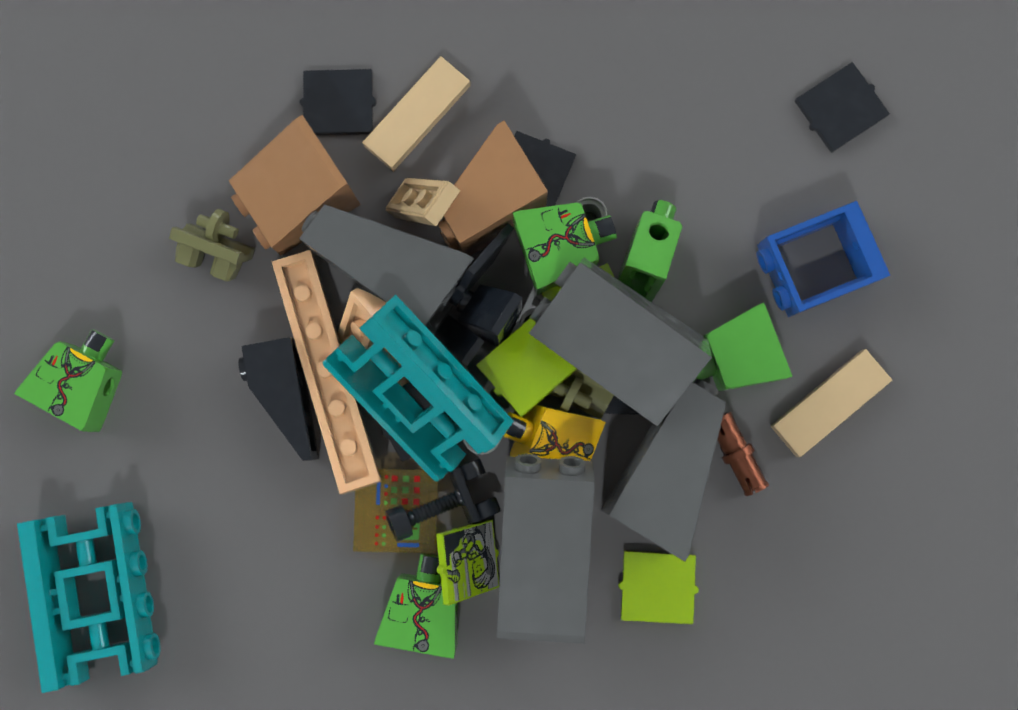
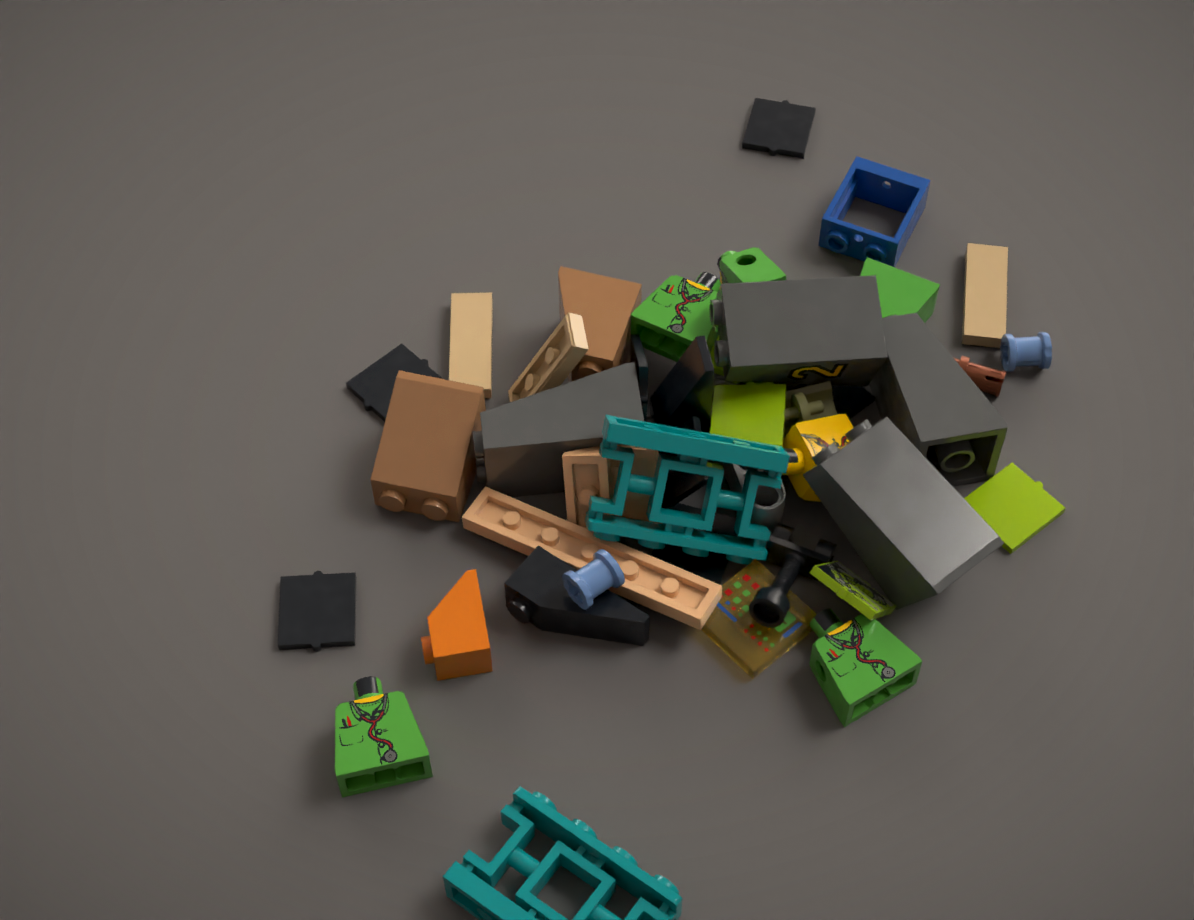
camera: 45 degrees left, 30 degrees down
(130, 245) = (317, 611): none -> black piece
(194, 349) = (458, 632): none -> orange slope
(195, 241) = (378, 553): olive hips -> none
(288, 404) = (593, 579): none -> medium blue bush
(802, 482) = (1026, 351): none -> medium blue bush

